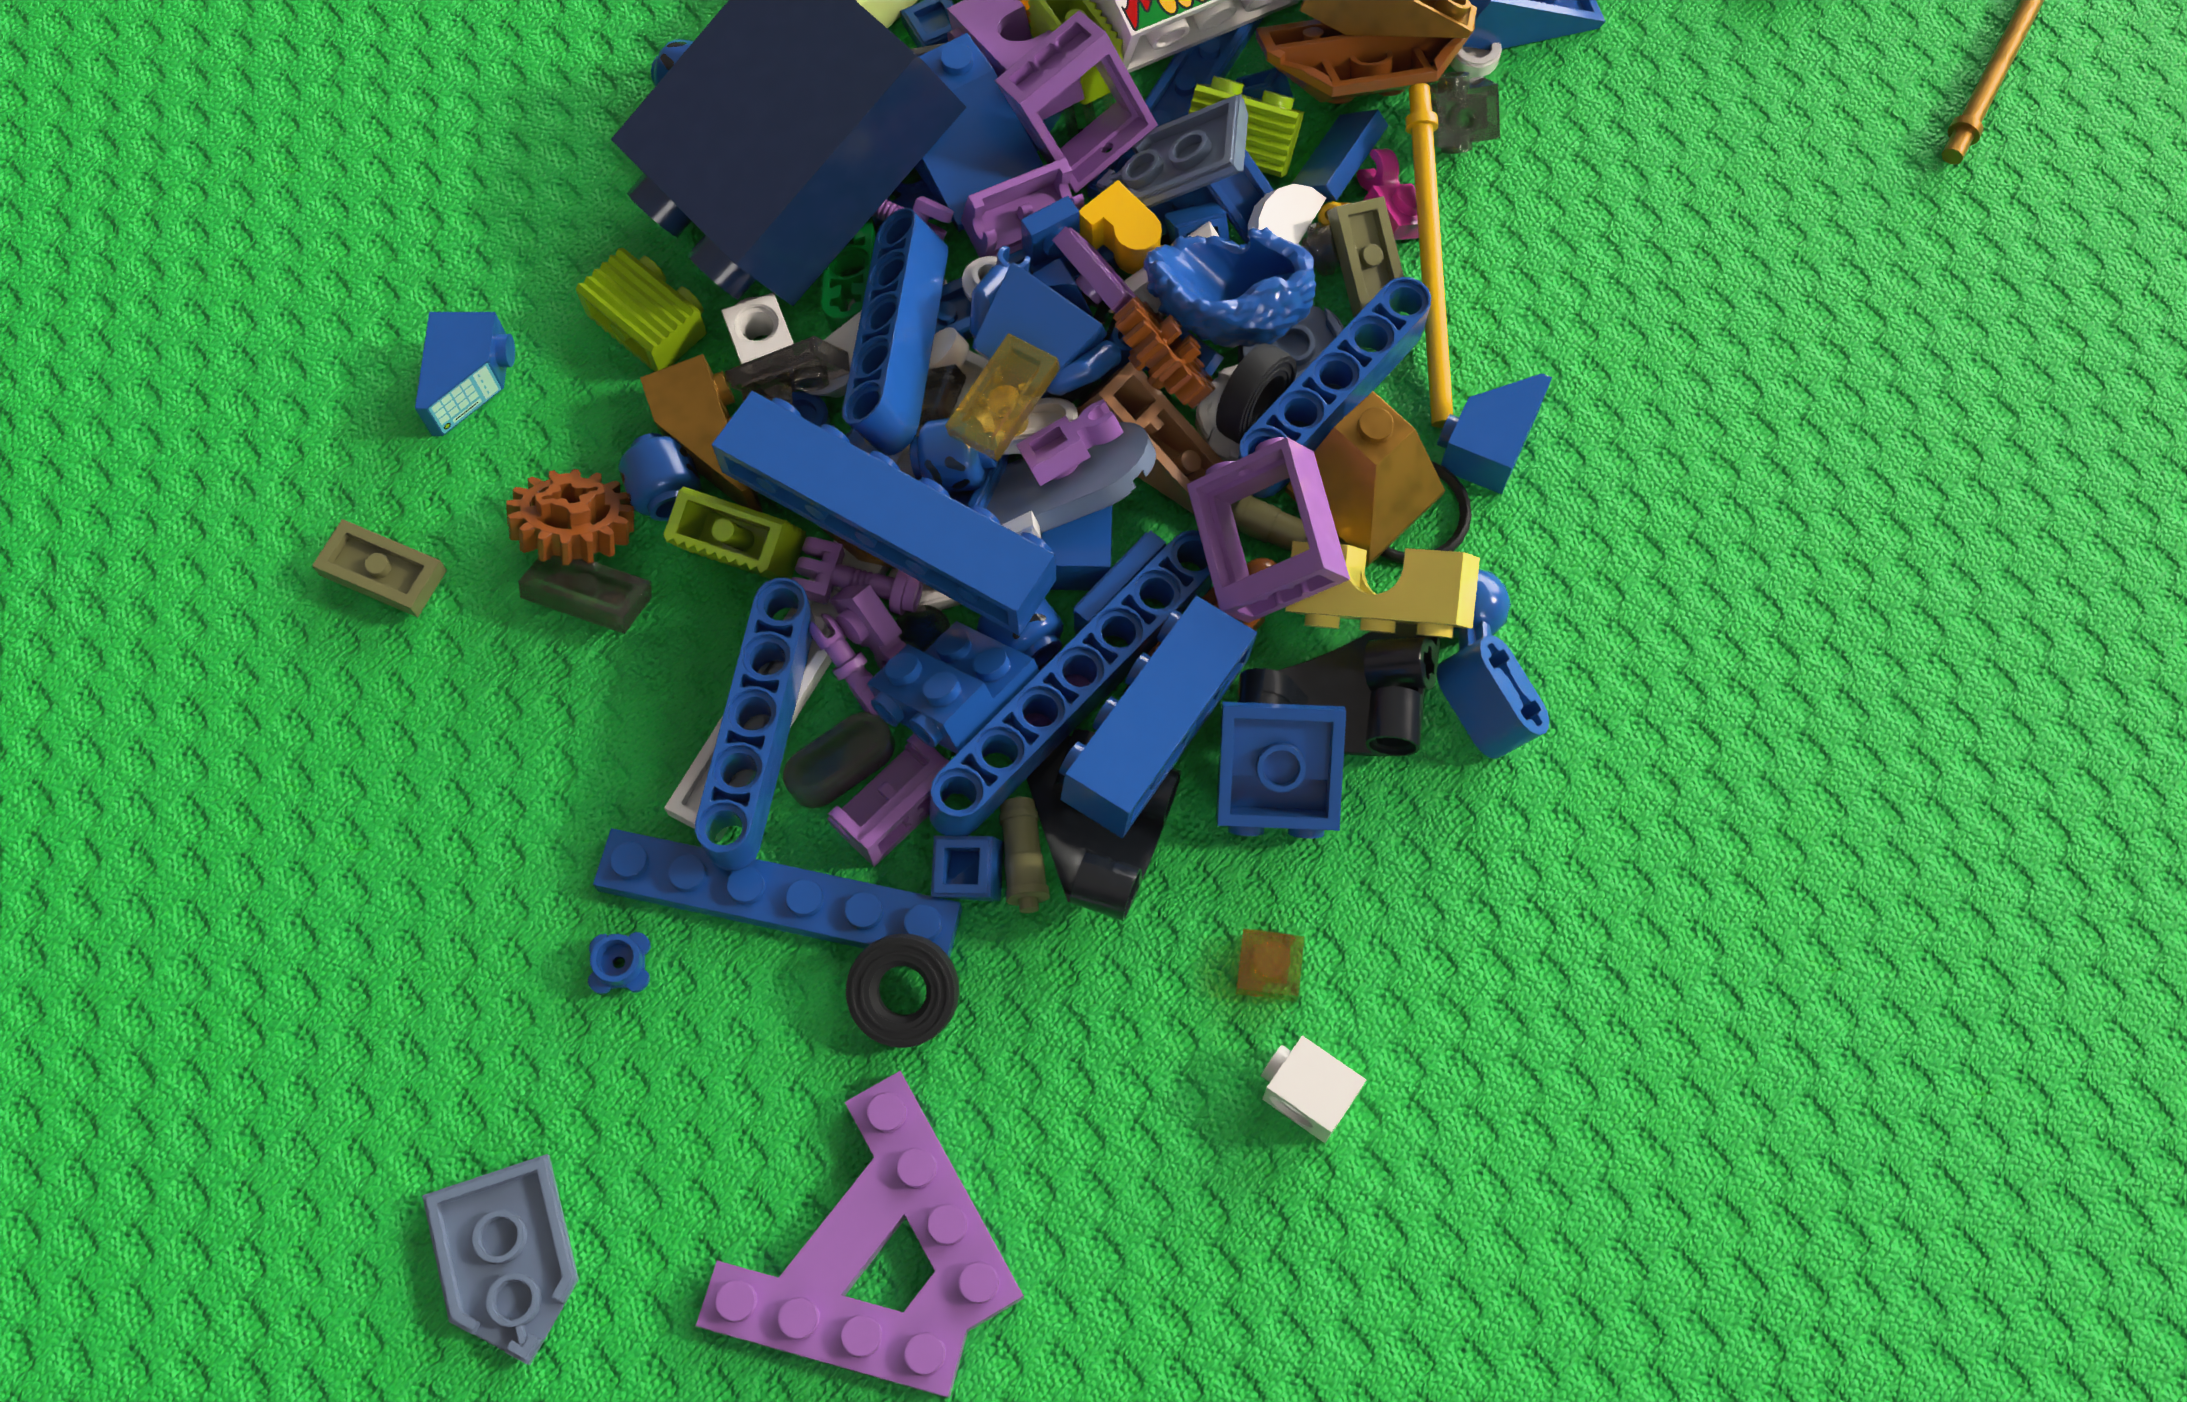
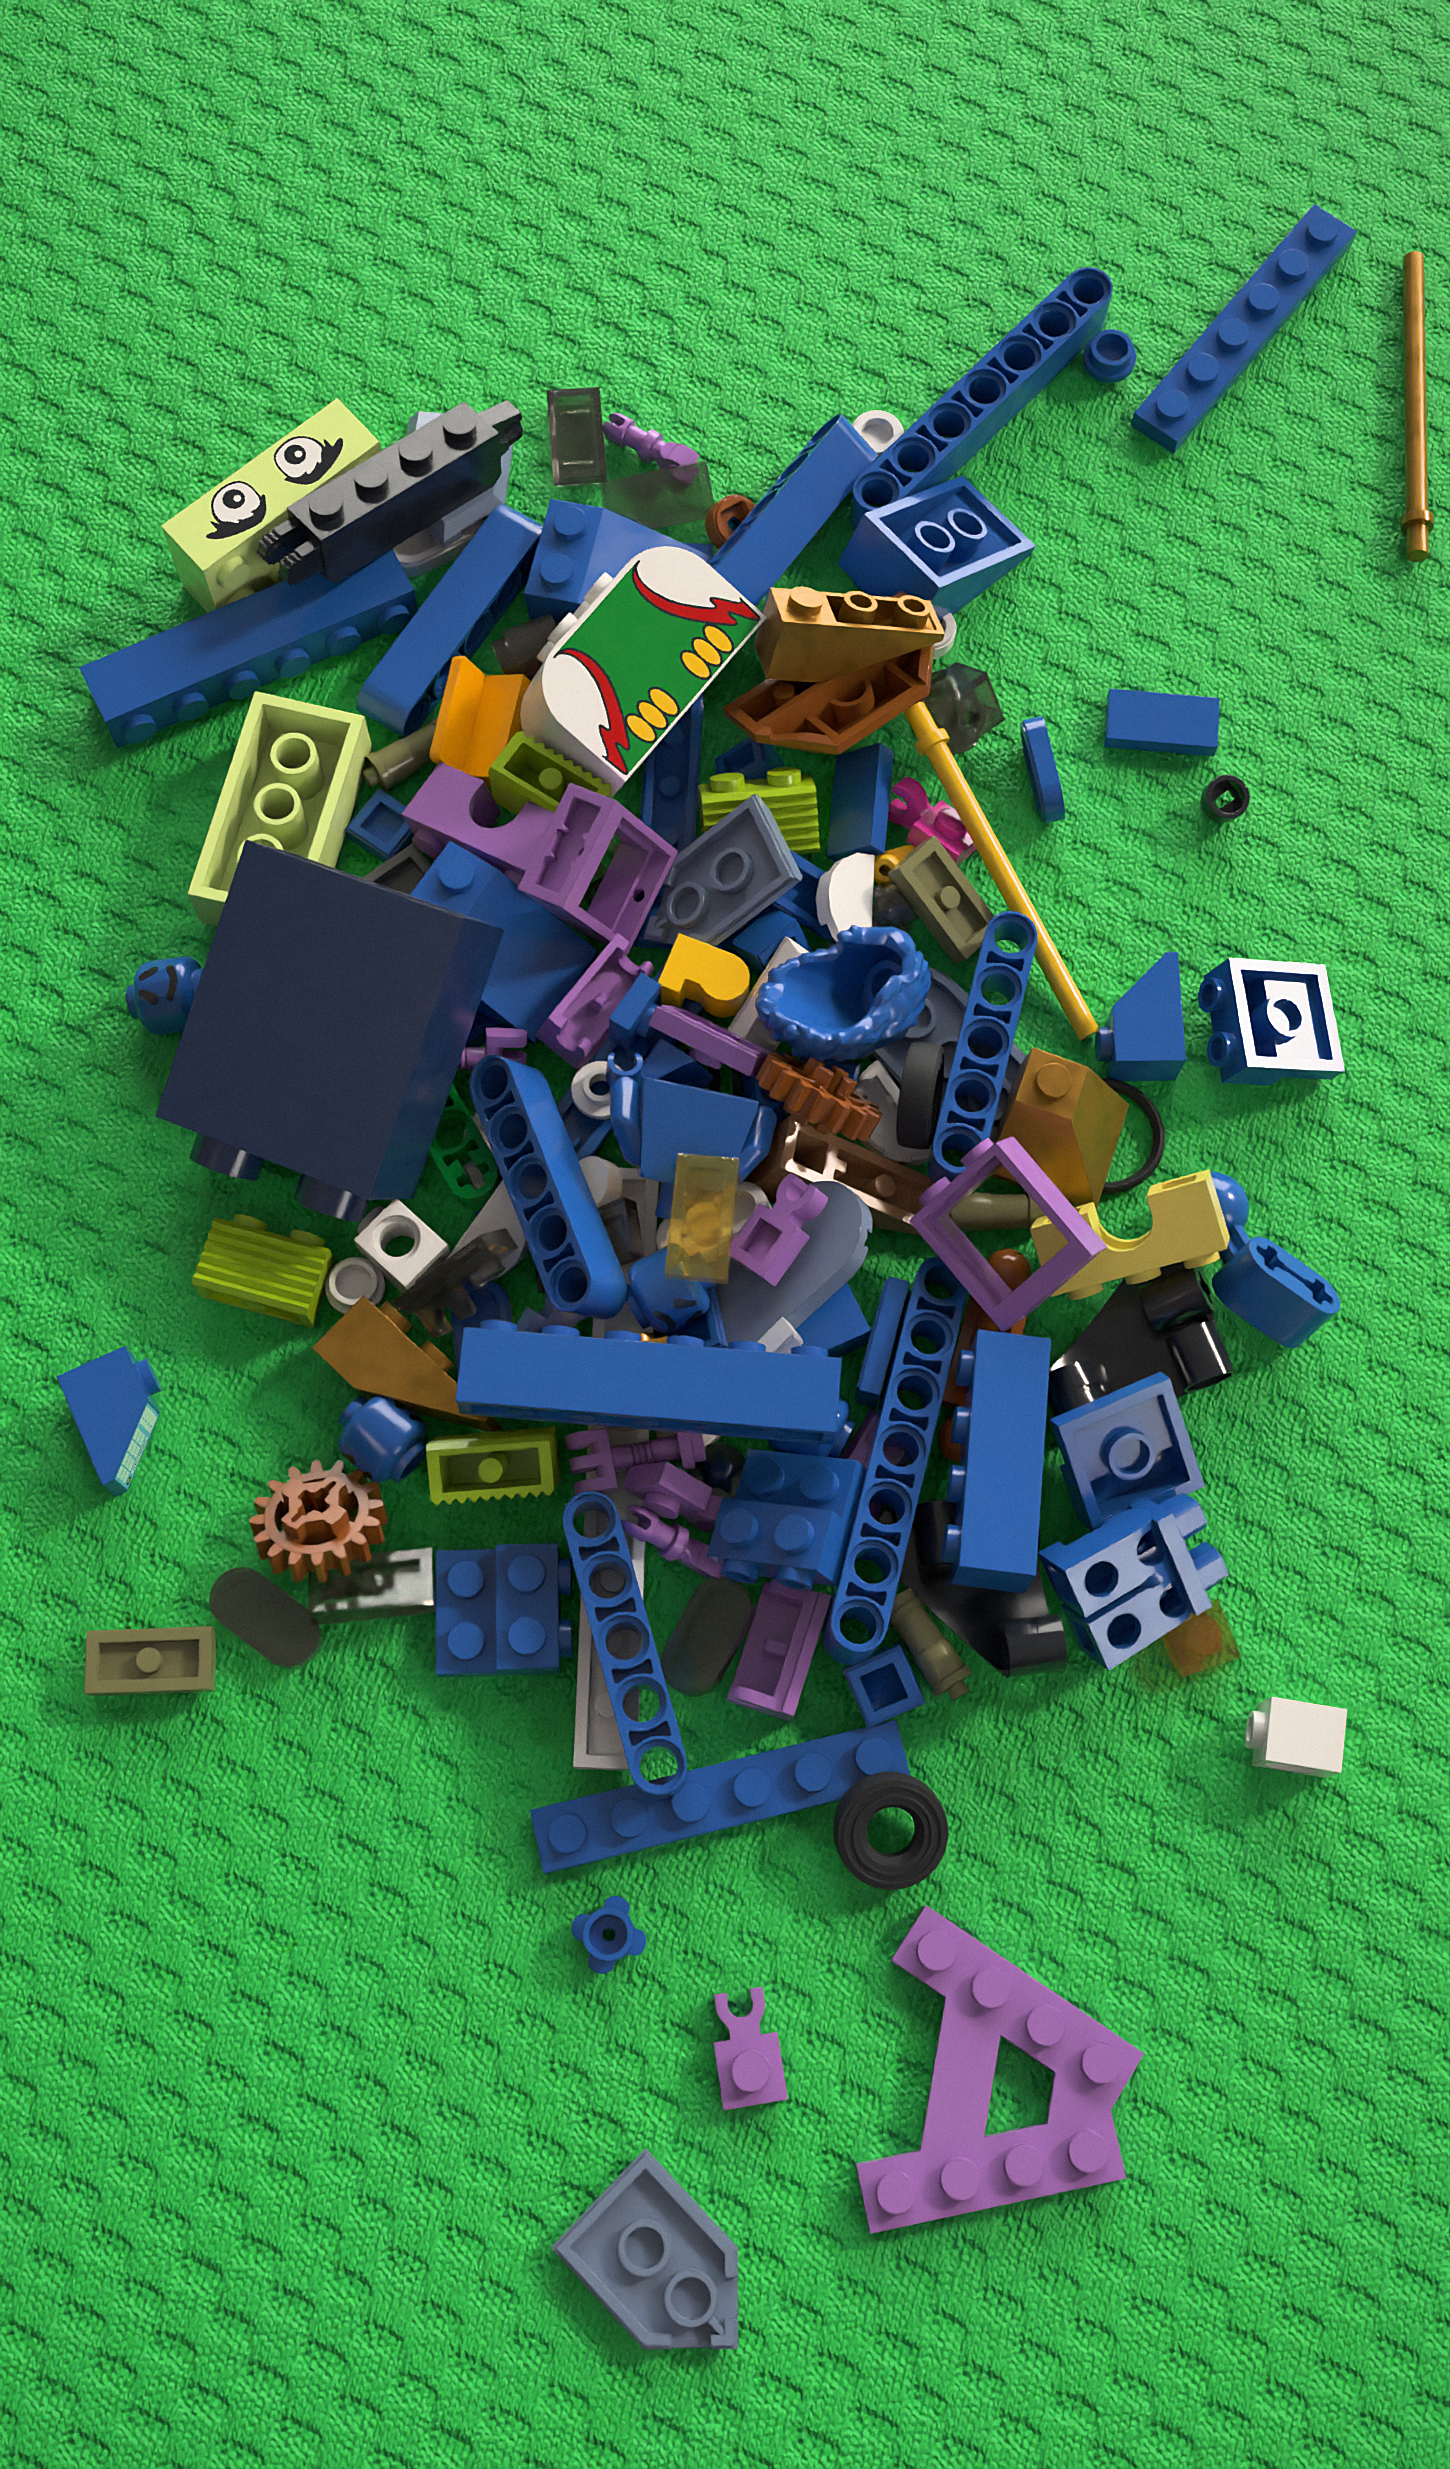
camera: 30 degrees left, 5 degrees up
(489, 578) = (265, 1617): none -> clear smoke tile
(677, 660) = (502, 1610): none -> blue plate
(678, 1127) = (749, 2061): none -> medium lavender plate
(715, 347) = (352, 1280): none -> white plate
(1233, 875) = (1134, 1577): none -> blue hips
(1512, 192) = (1042, 770): none -> blue tile
(1611, 475) = (1270, 1021): none -> blue plate
(1643, 200) = (1161, 722): none -> blue tile
(1664, 270) = (1218, 787): none -> black hinge

